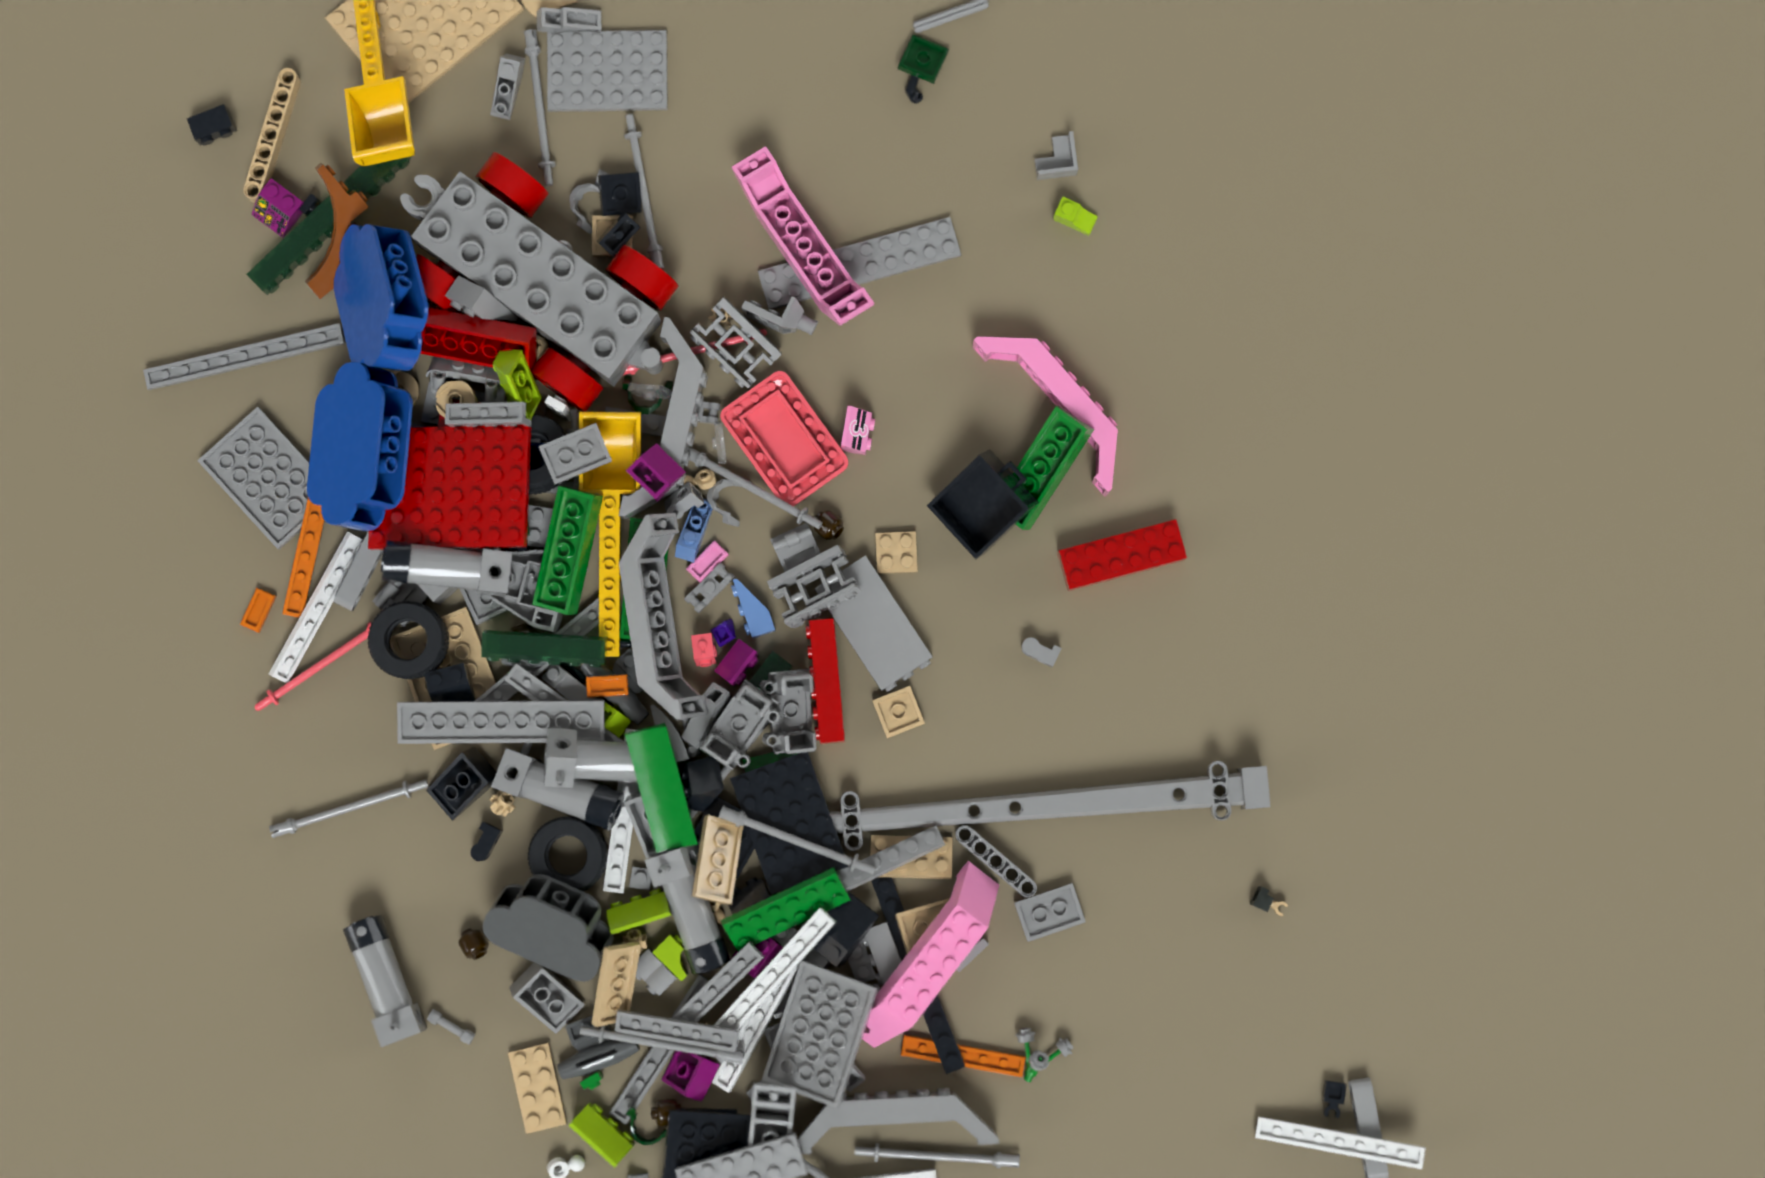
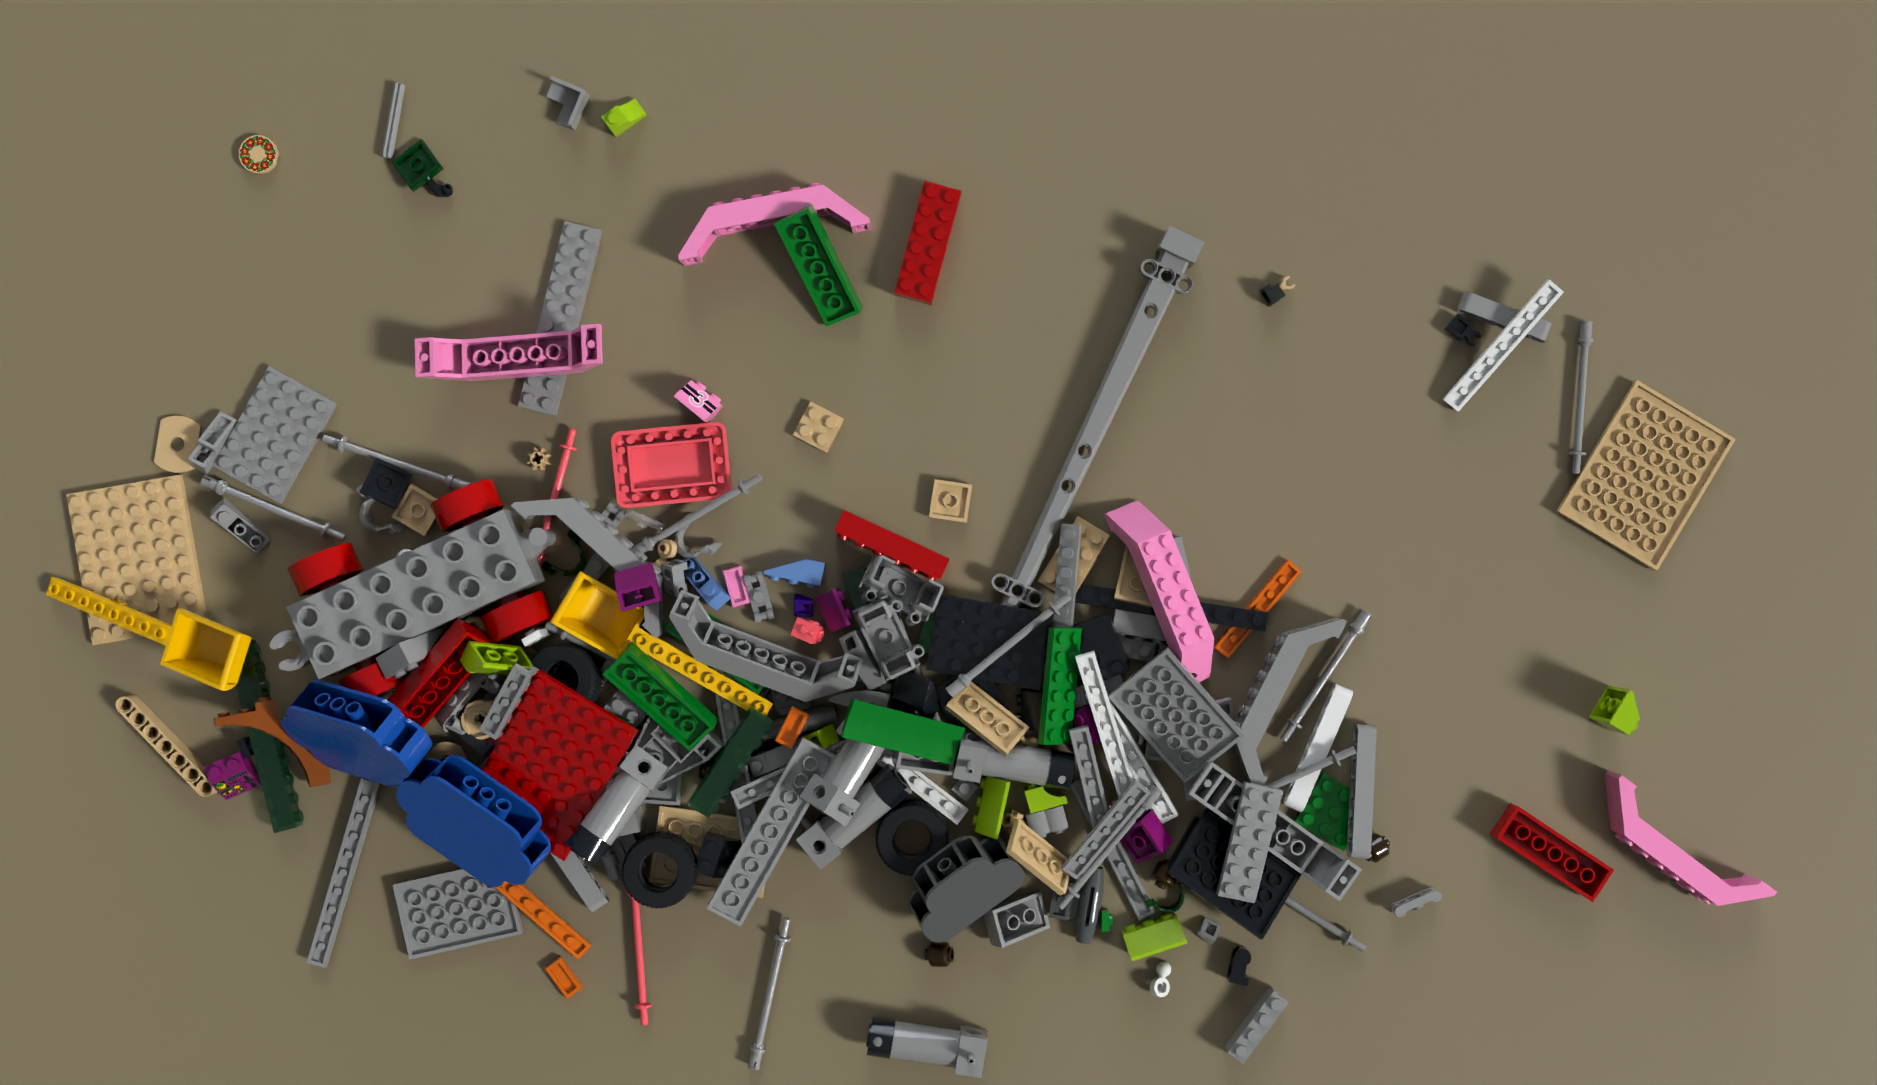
camera: 60 degrees left, 5 degrees up
(212, 125) = (130, 790): black brick -> none
(316, 609) = (590, 930): white plate -> none
(435, 1017) = (1010, 1001): light grey bar -> none
(462, 782) = (803, 889): black slope -> none
(486, 843) = (863, 897): black leg -> none
(502, 803) = (839, 867): tan gear -> none
(537, 1088) = (1085, 967): tan plate -> none
(575, 453) = (583, 645): light grey plate -> none
(618, 234) = (419, 504): black brick -> none
(650, 392) = (567, 553): clear plate -> none
(745, 332) = (562, 443): light grey fence -> none
(791, 320) = (575, 401): light grey plate -> none
(795, 546) = (769, 507): light grey plate -> none
(808, 572) = (794, 510): light grey fence -> none
(831, 527) = (765, 467): dark brown head -> none
(878, 628) = (867, 479): light grey brick -> none
(983, 503) = (819, 331): black container -> none
(1005, 863) = (1126, 491): light grey beam -> none
(1039, 652) = (963, 360): light grey leg -> none
(1039, 1060) = (1298, 550): light grey plant -> none
(1049, 912) = (1183, 472): light grey plate -> none

